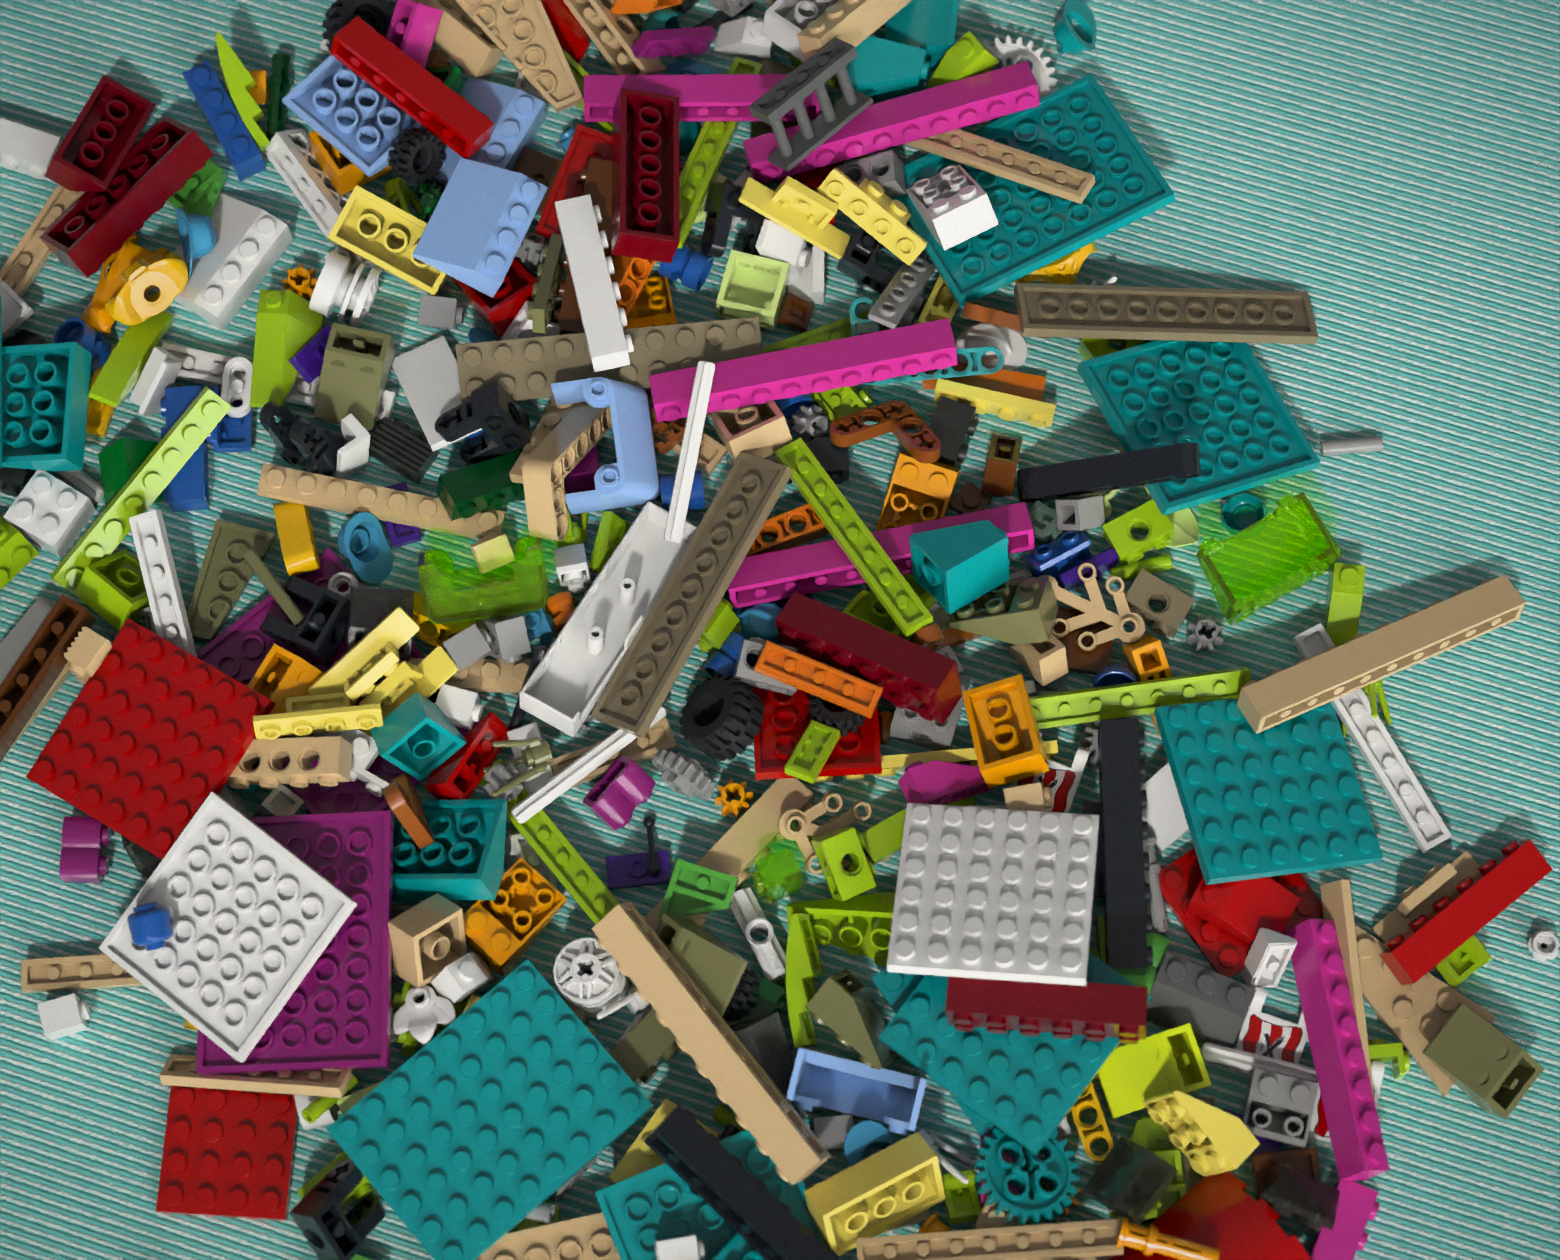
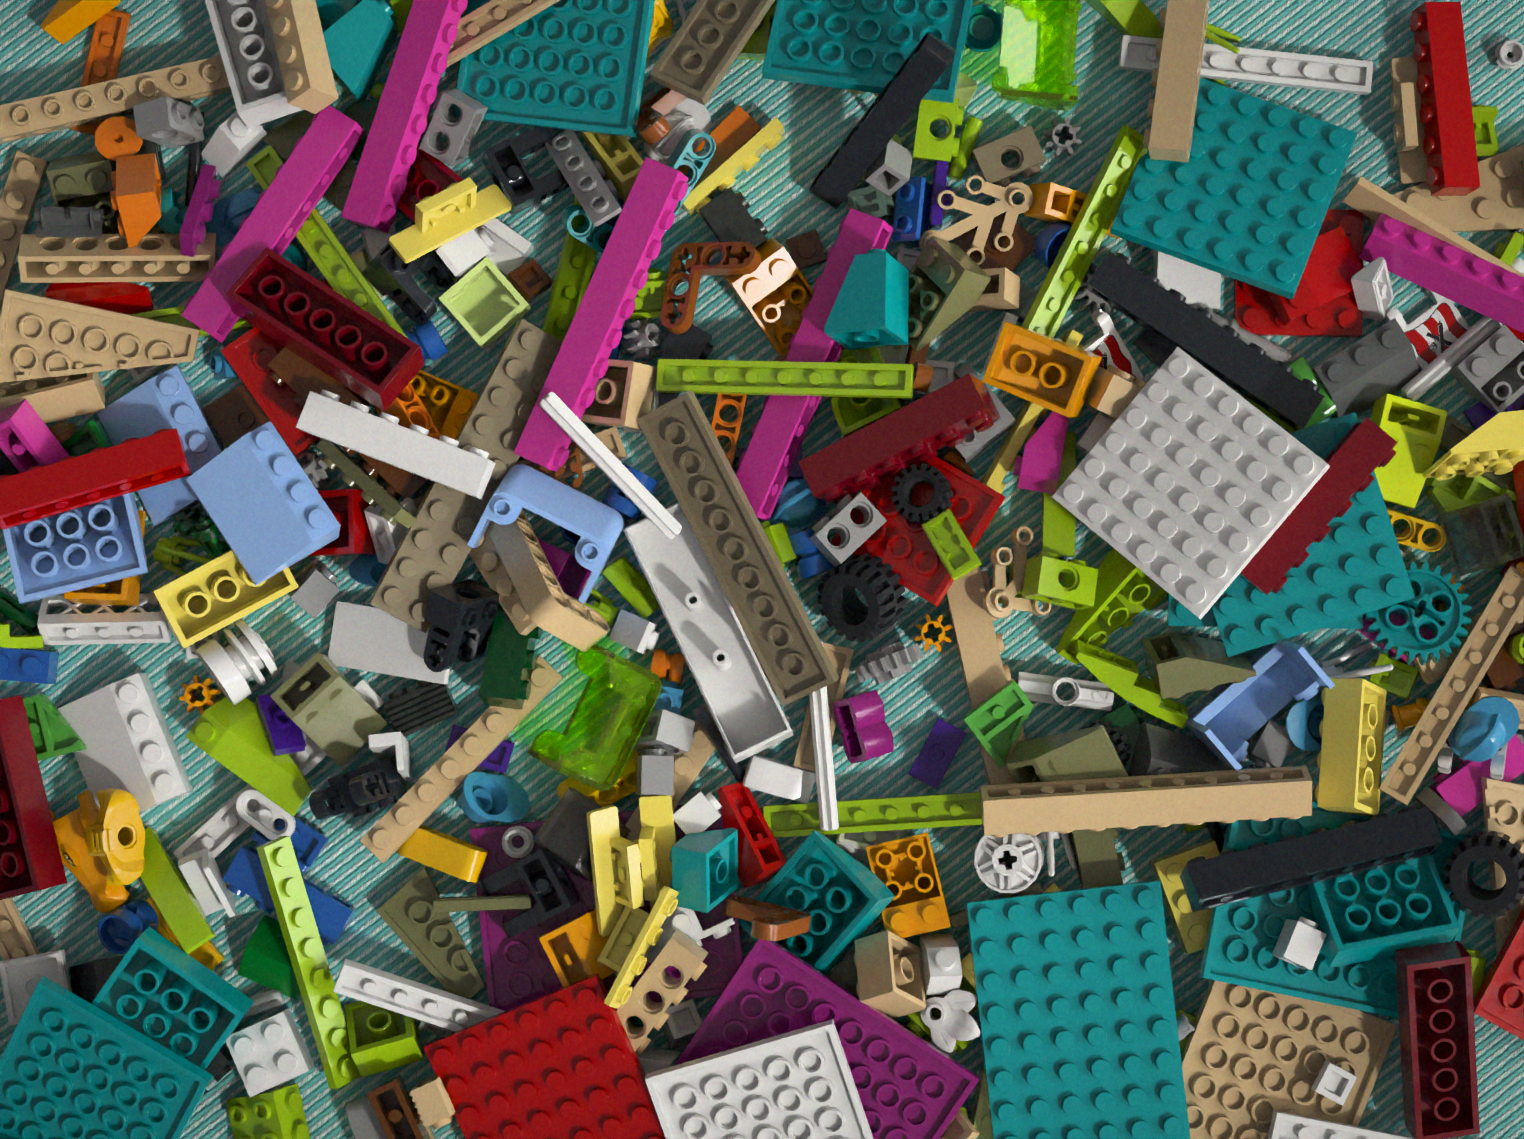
camera: 60 degrees left, 15 degrees up
(195, 235) = (94, 761): dark azure piece -> none
(405, 151) = (154, 516): black tyre -> none
(492, 552) = (572, 691): tan slope -> none
(500, 775) = (793, 820): light grey gear -> none
(536, 755) = (786, 778): olive plant -> none
(653, 866) = (947, 740): black hinge -> none
(777, 876) = (1029, 644): clear neon green brick -> none
(795, 88) = (344, 139): dark grey fence -> none
(818, 679) = (894, 496): orange tile -> none
(875, 213) = (495, 148): light yellow bracket -> none
(952, 206) = (534, 76): white slope -> none
(1001, 465) = (793, 200): reddish brown slope -> none

